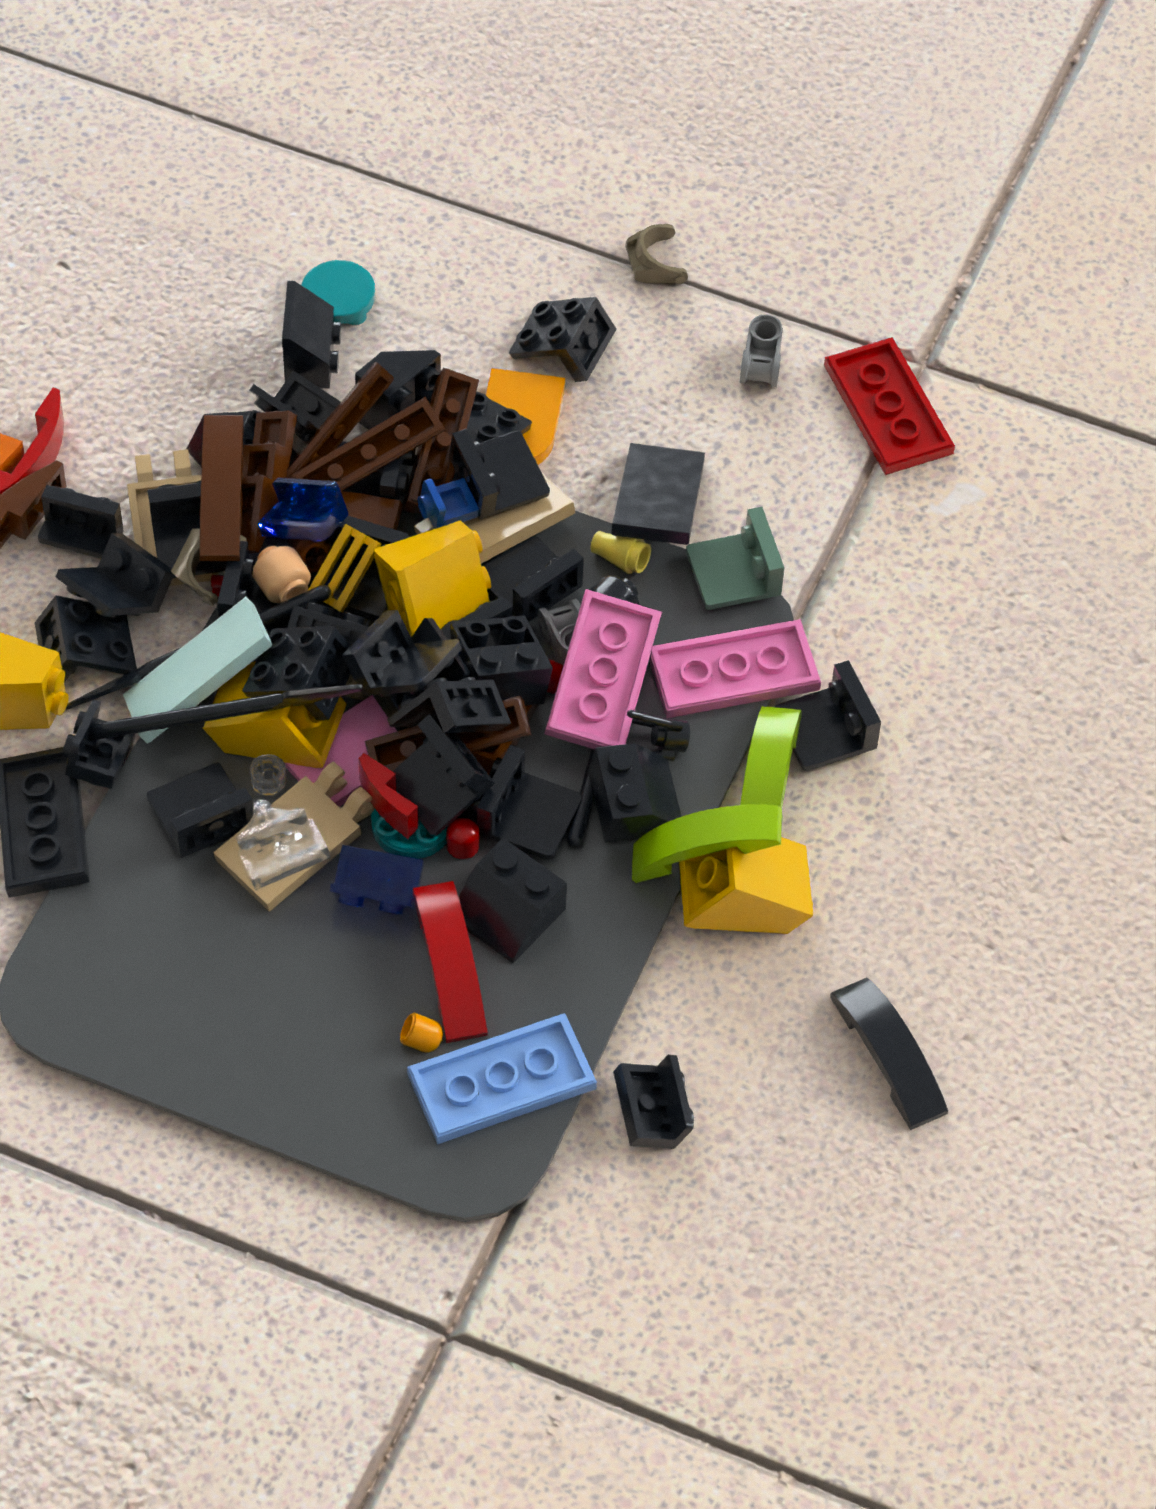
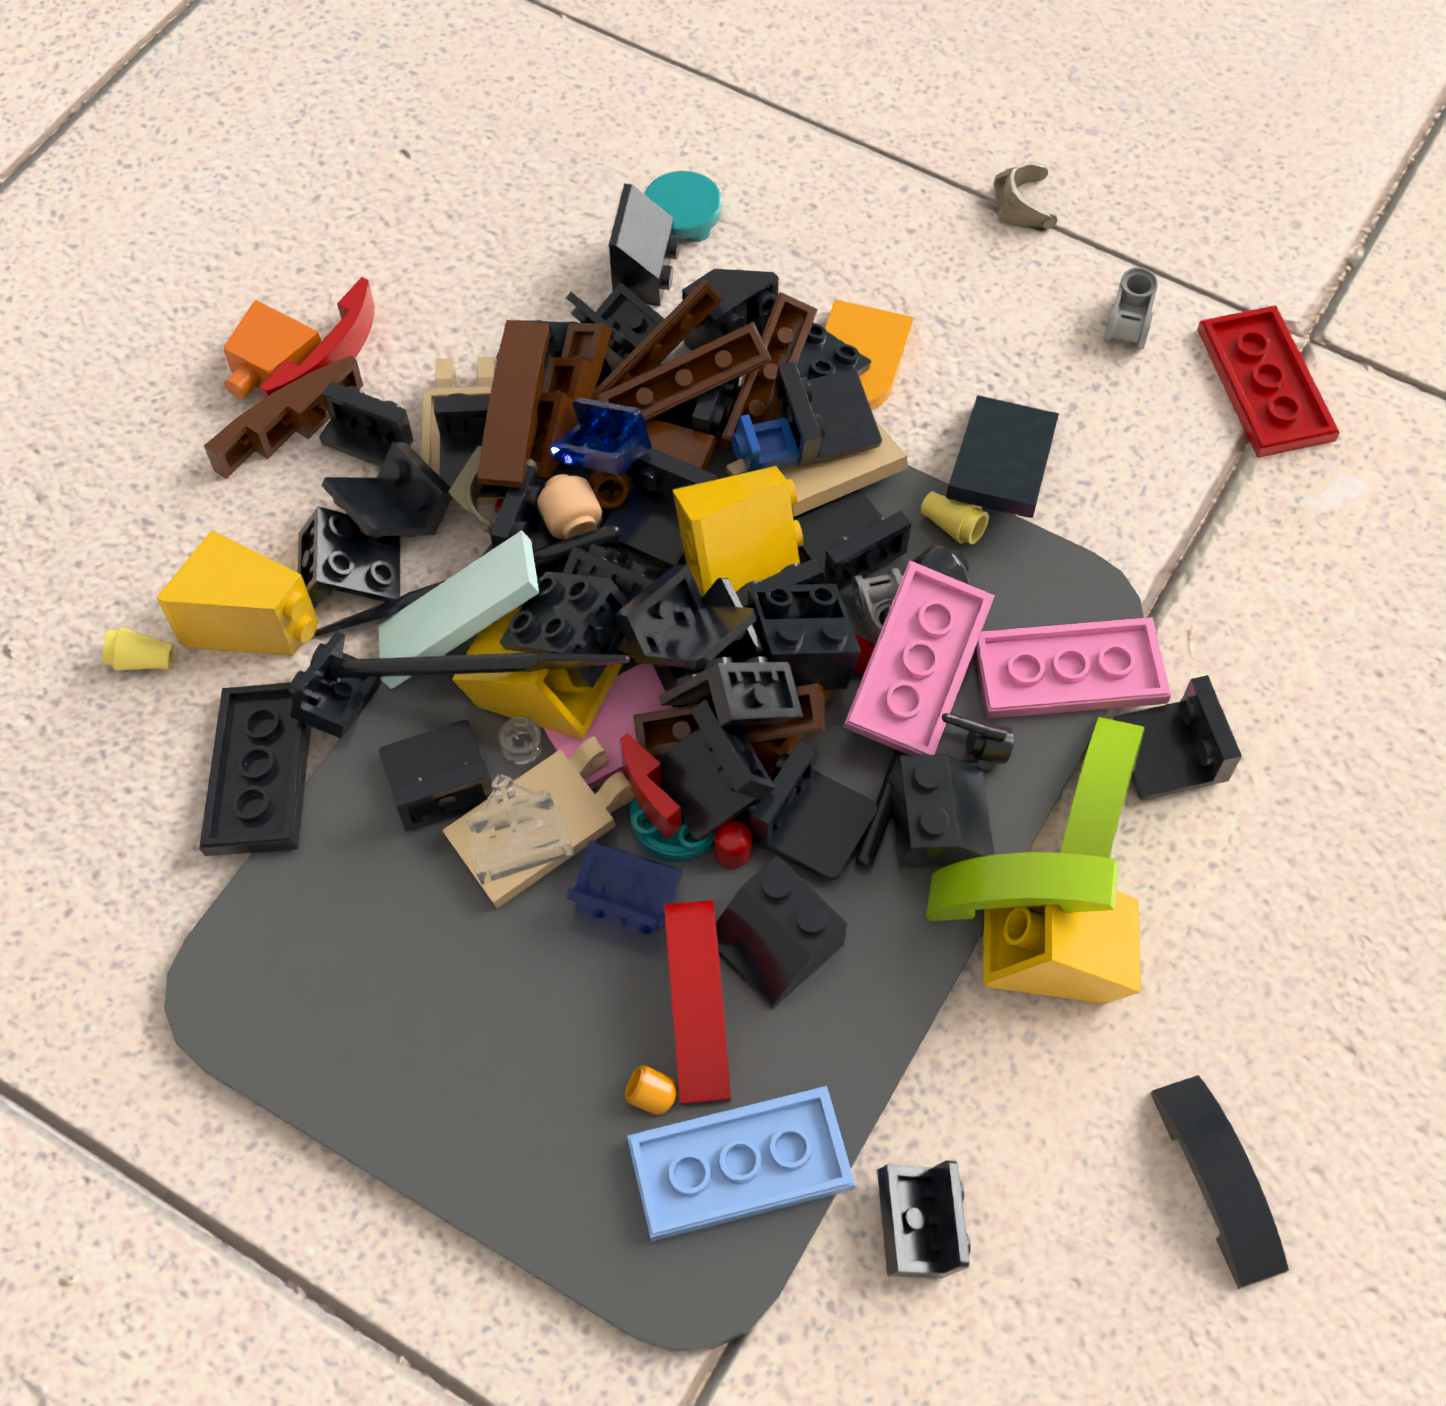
camera: 10 degrees right, 5 degrees up
(332, 558) = (629, 493): yellow tile -> none
(567, 328) = (926, 265): black bracket -> none
(739, 565) = (1087, 547): sand green bracket -> none

